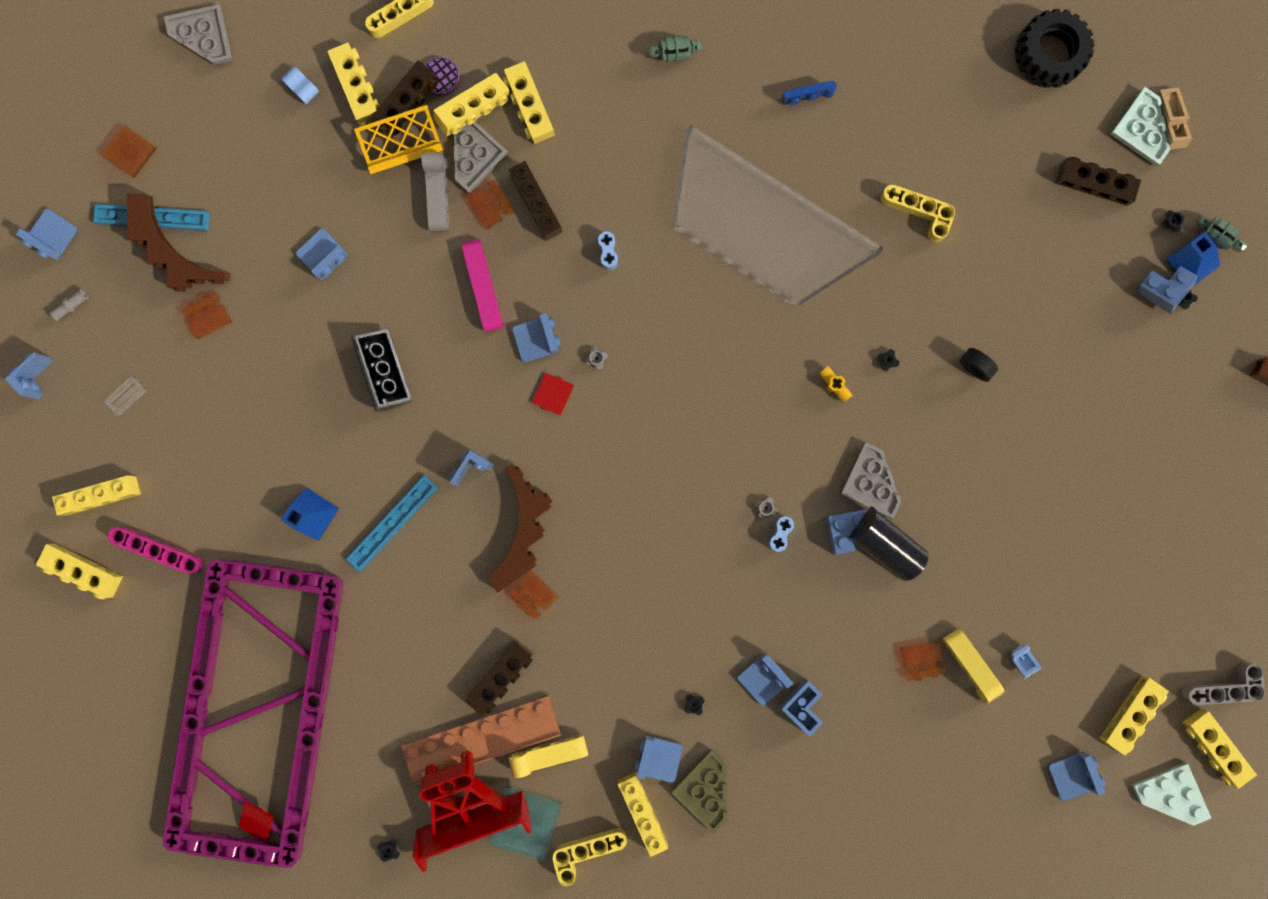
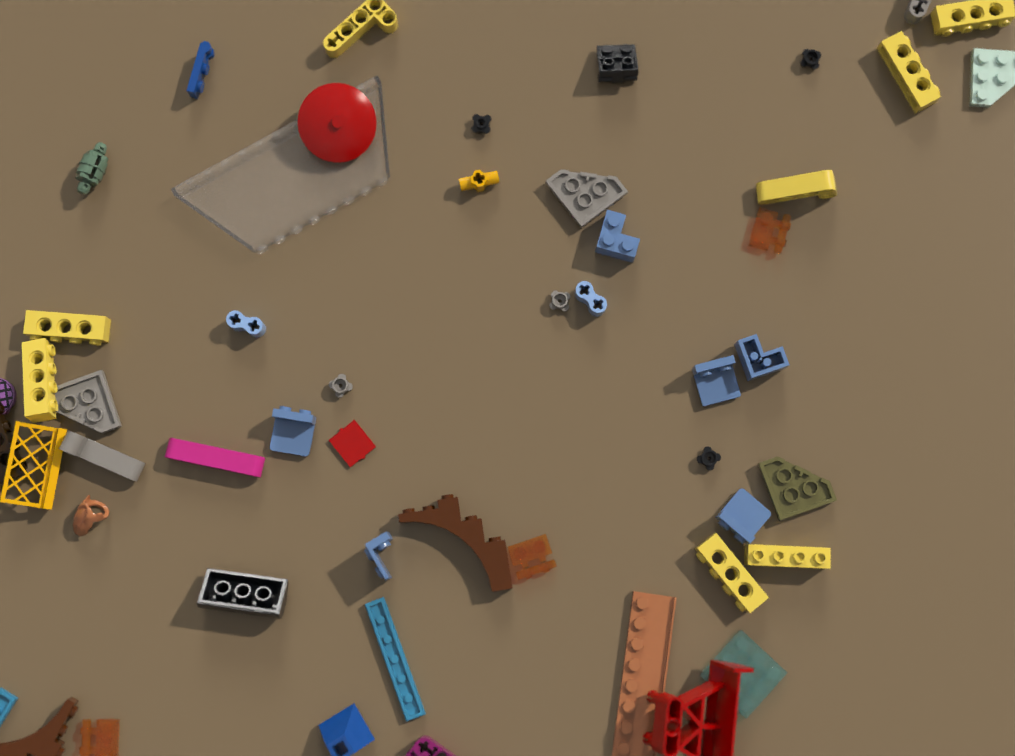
camera: 65 degrees left, 5 degrees down
(322, 254) = (102, 596): medium blue bracket -> none
(377, 205) = (85, 517): none -> nougat piece
(477, 699) = (613, 654): dark brown brick -> none
(484, 206) = (142, 418): clear orange plate -> none
(535, 200) = (162, 367): dark brown brick -> none
(547, 755) = (689, 618): light yellow beam -> none
(591, 852) = (799, 624): light yellow beam -> none
(595, 802) = (755, 594): none -> light yellow brick
(822, 235) = (337, 122): none -> red dish
(890, 545) = (650, 206): black brick -> none
(979, 364) = (527, 46): black tyre -> none
(1005, 451) = (617, 63): none -> black plate
(1025, 661) = (814, 141): light blue bracket -> none
(1076, 776) = (939, 148): medium blue bracket -> none
(1105, 624) = (815, 55): none -> black plate

